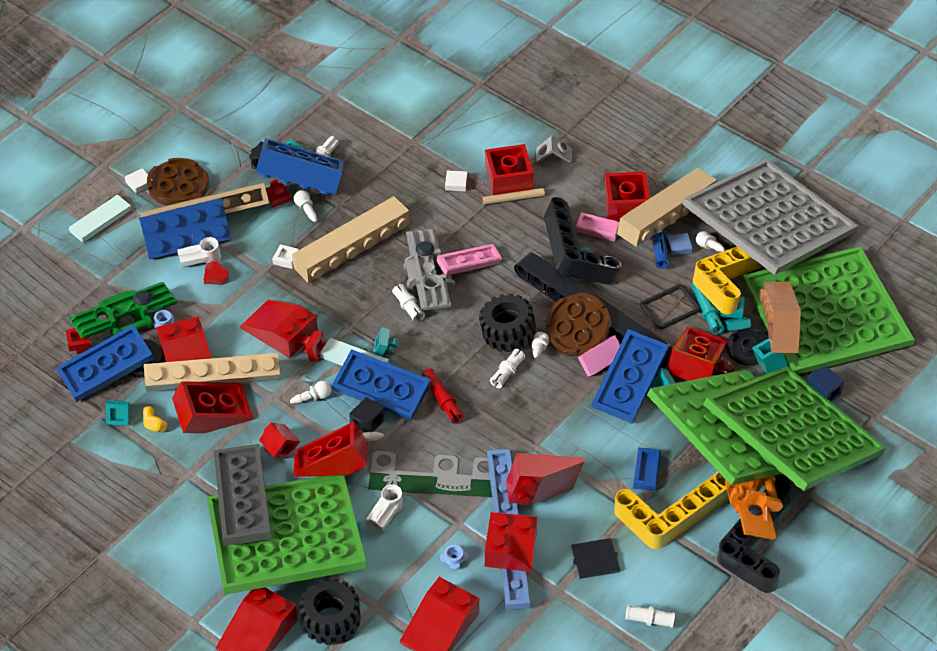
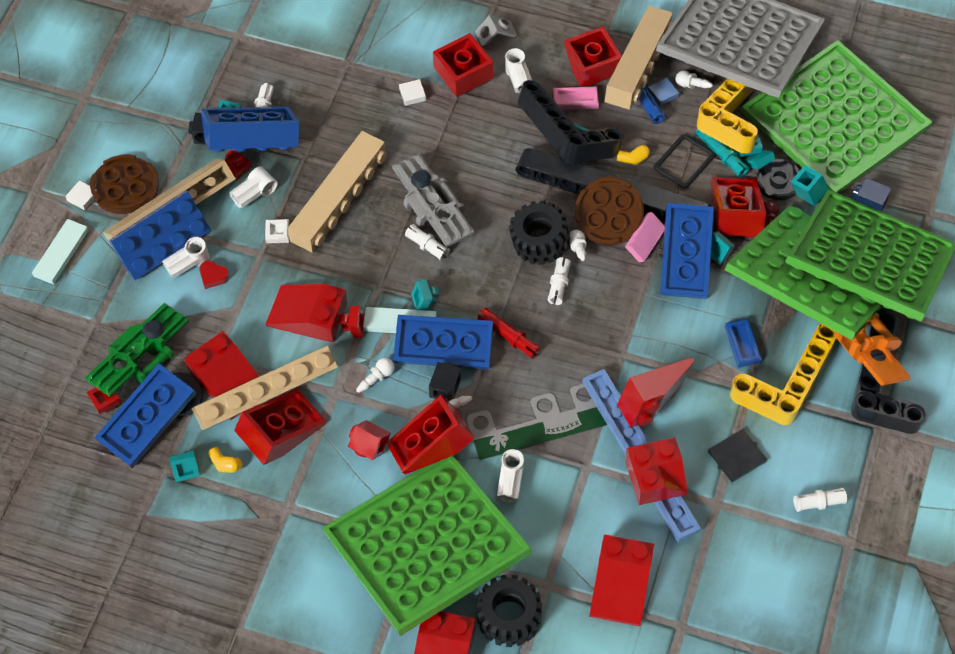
camera: 20 degrees left, 10 degrees up
(162, 318) = (182, 339): light blue plate -> none
(241, 495) = (362, 515): dark grey plate -> none
(288, 213) = (258, 184): none -> white piece
(303, 200) = (266, 161): white bar -> none
(454, 551) = (601, 497): light blue plate -> none
(469, 259) = (467, 175): bright pink tile -> none
(513, 196) = (477, 91): tan bar -> none
(556, 184) = (516, 68): none -> white piece
(626, 289) = (634, 157): none -> yellow arm
(782, 316) = (809, 139): nougat wedge -> none

